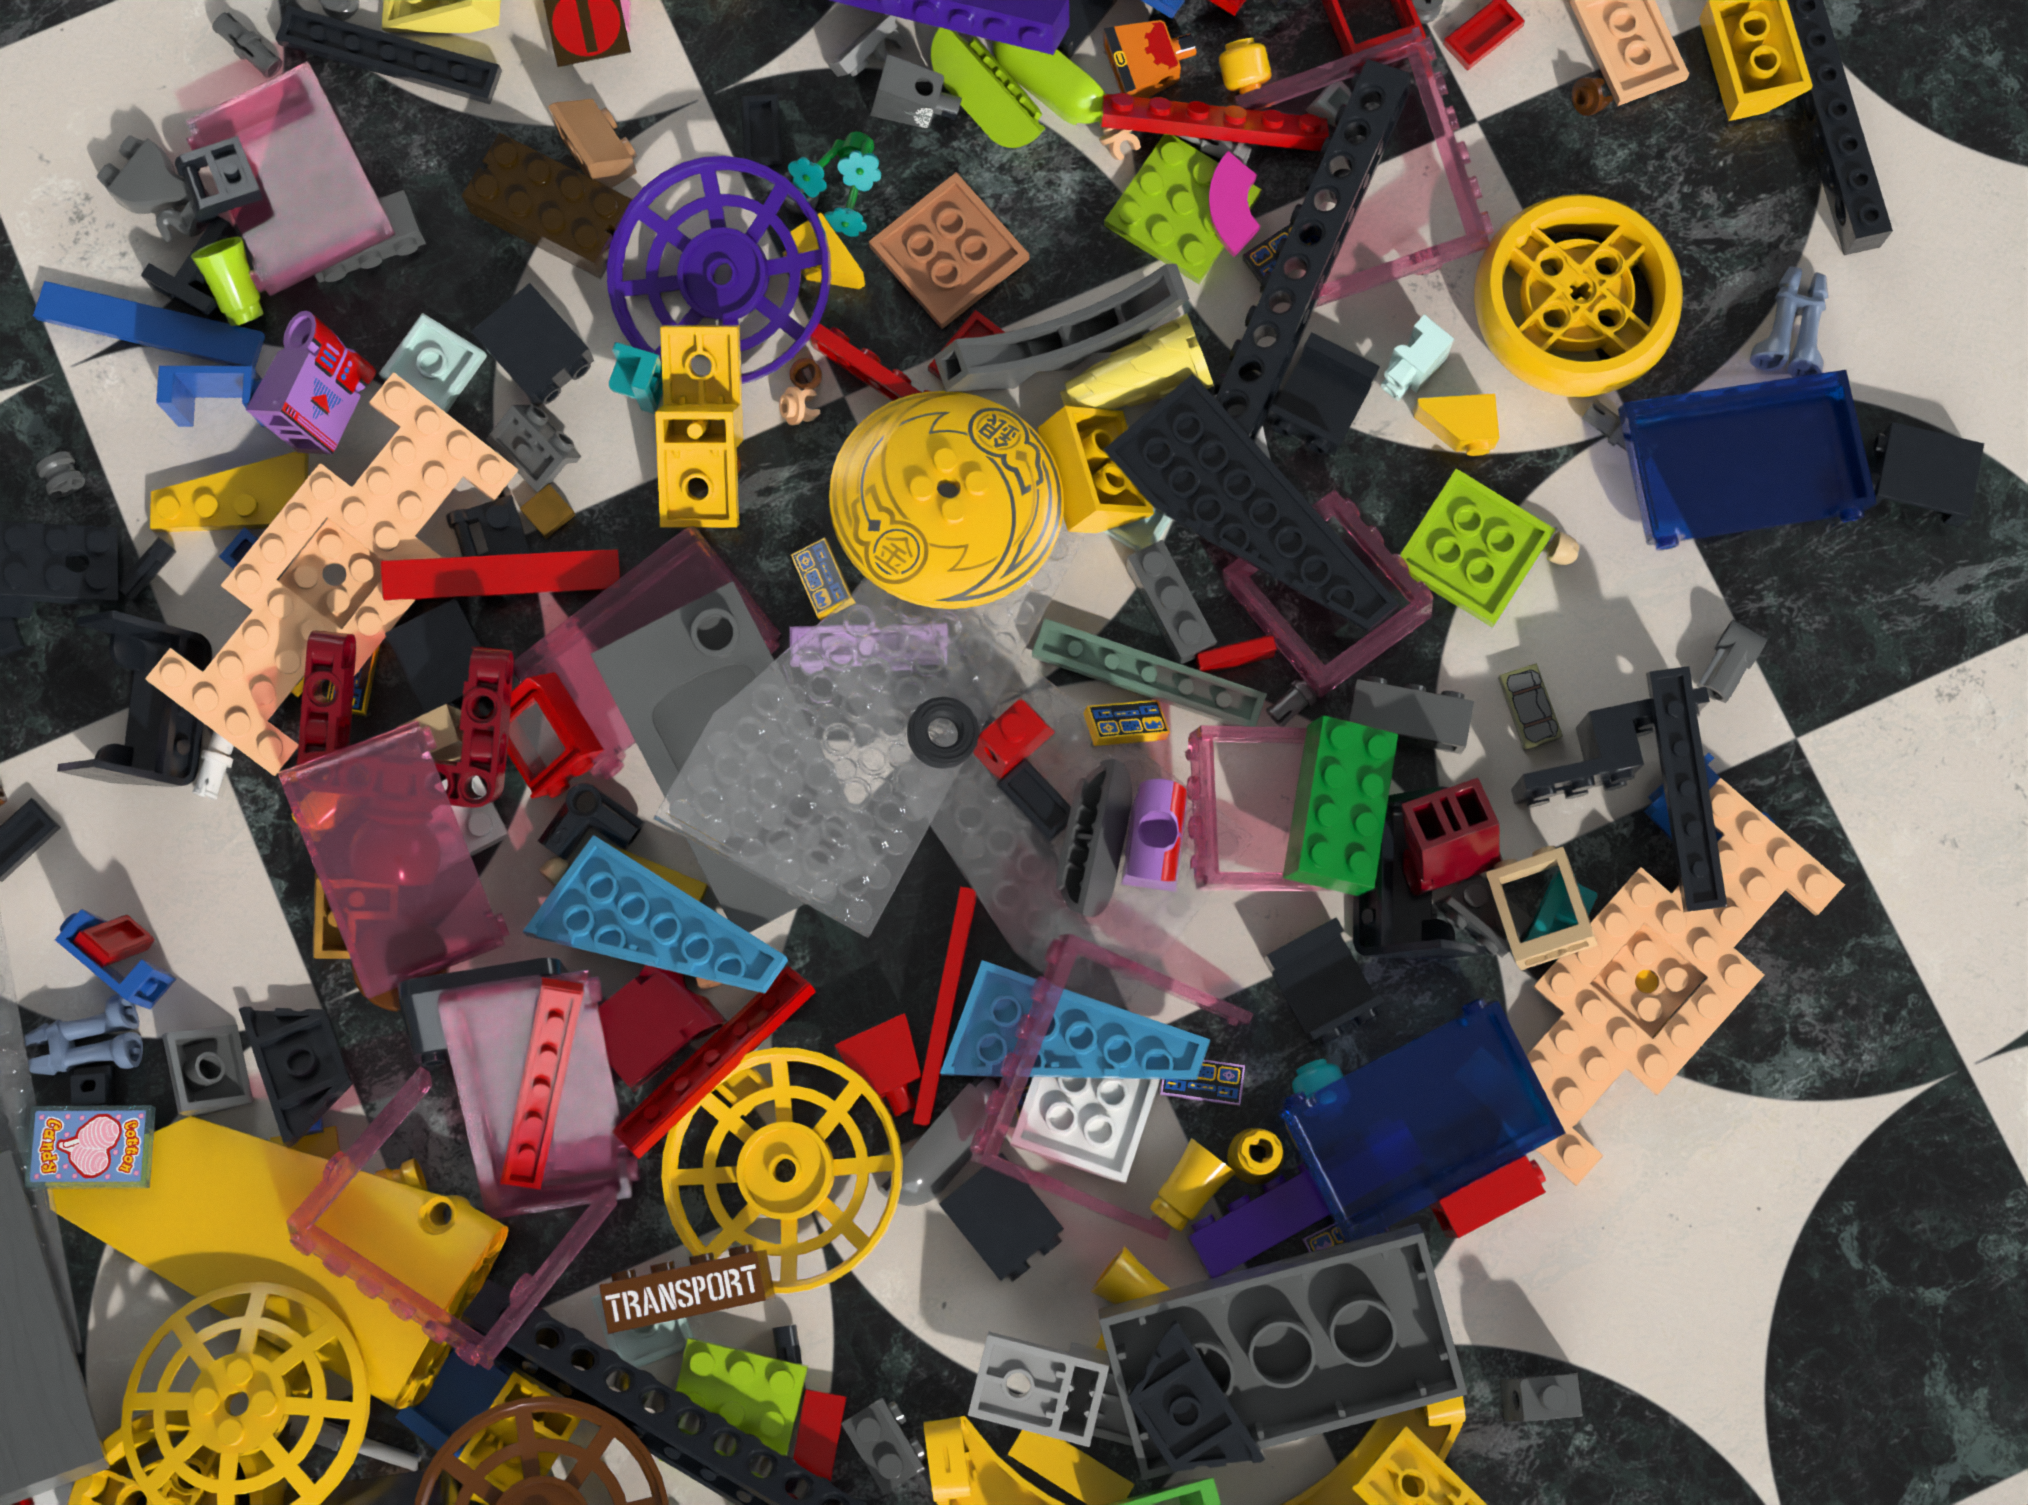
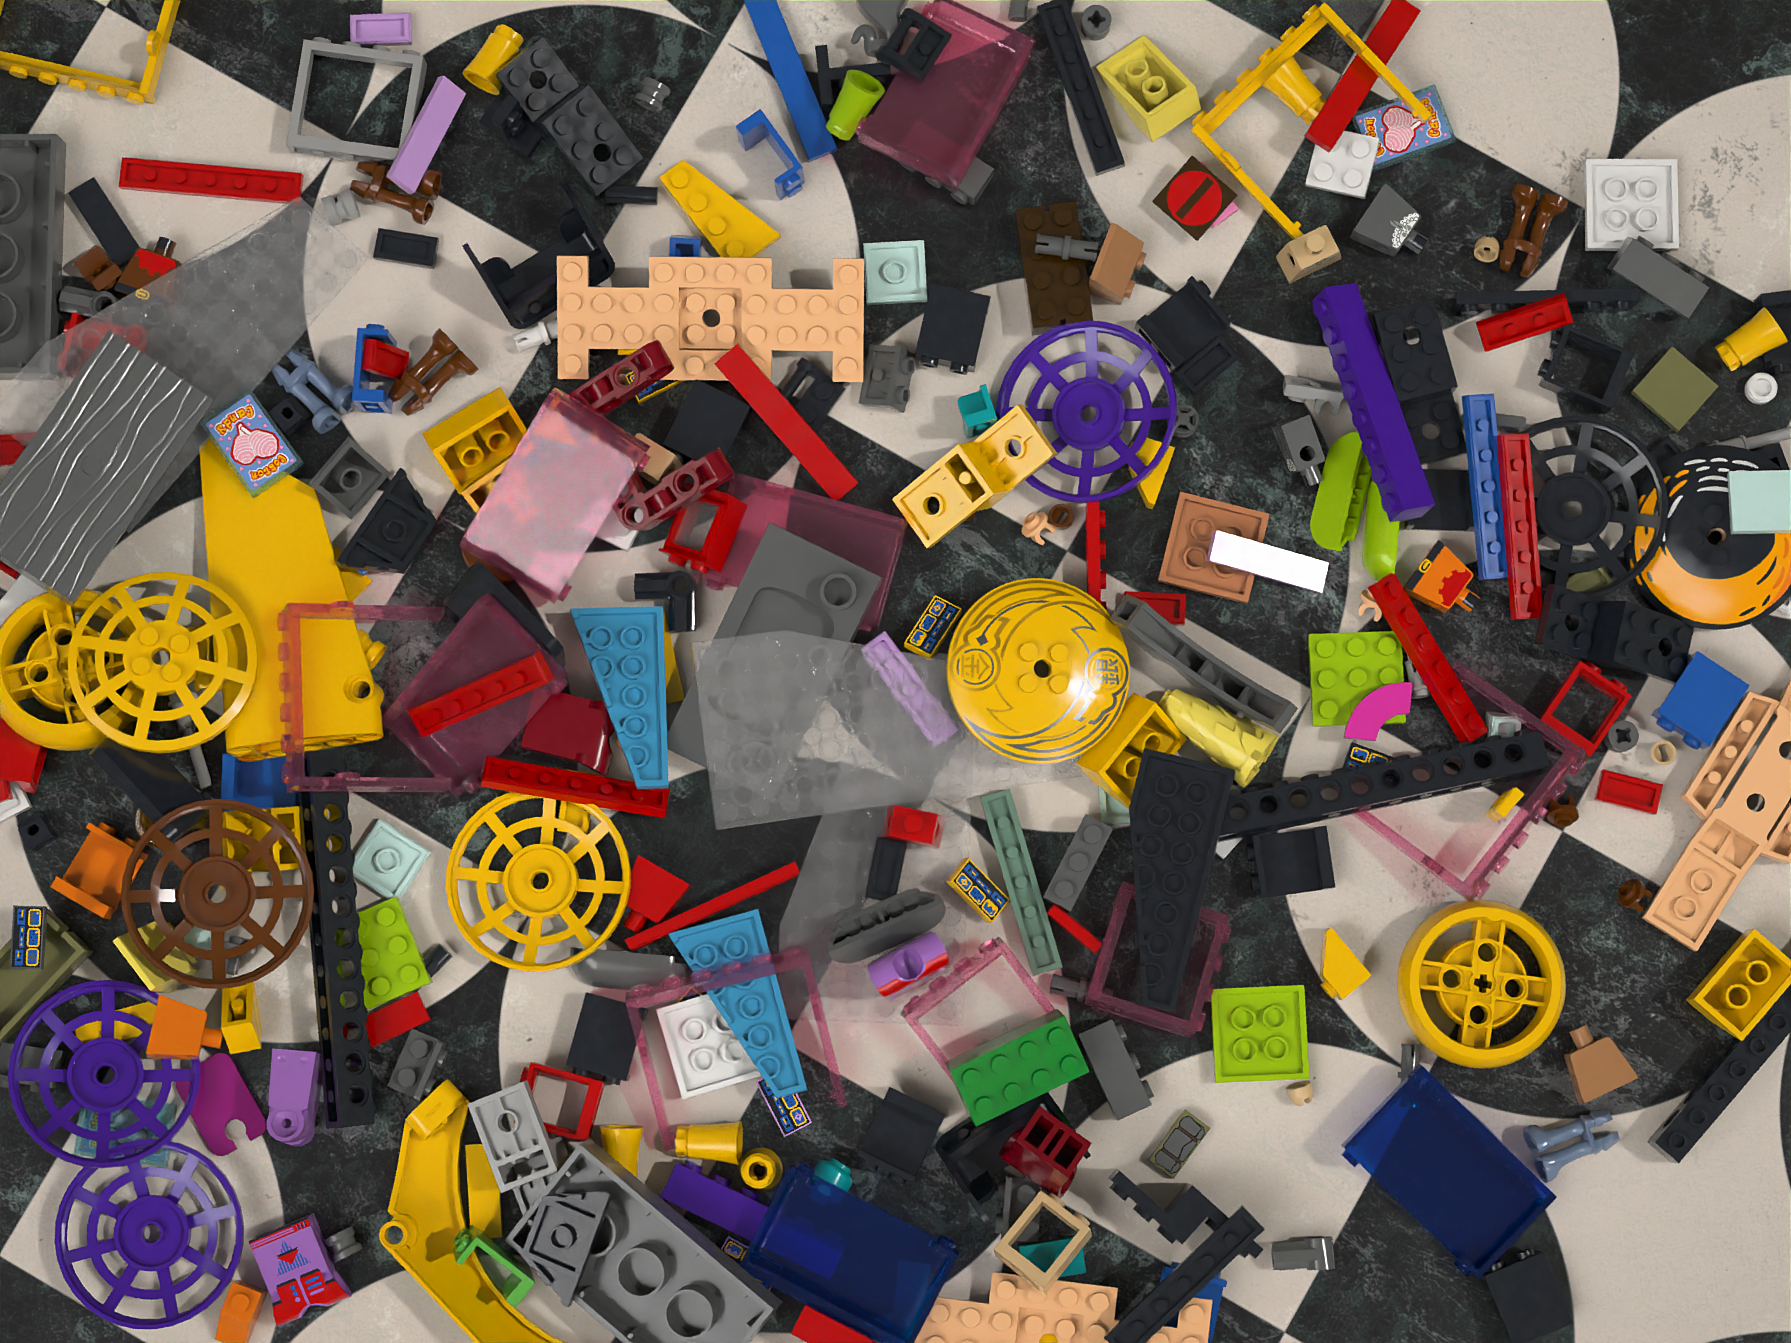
camera: 55 degrees right, 5 degrees up
(176, 868) = (455, 364): none -> reddish brown piece
(270, 905) = (476, 438): none -> yellow slope
(311, 387) = (819, 212): medium lavender piece -> none
(538, 169) = (1066, 247): none -> dark grey pin
(547, 511) = (852, 418): pearl gold tile -> none
(554, 870) = (625, 598): tan hinge -> none
(688, 1290) = (422, 876): reddish brown brick -> none
(703, 116) = (1184, 324): none -> black panel
(858, 171) = (1218, 451): teal plant -> none
(948, 709) = (893, 794): black tyre -> none
(1002, 206) = (1267, 561): none -> tile
(1062, 1287) = (590, 1105): none -> red window
(1244, 65) = (1483, 650): yellow head -> none
(1414, 148) = (1504, 804): none -> yellow tile
(1416, 363) = (1357, 911): light aqua hips -> none
(1464, 103) = (1563, 814): none -> reddish brown plate
(1737, 247) = (1596, 1065): none -> medium nougat torso

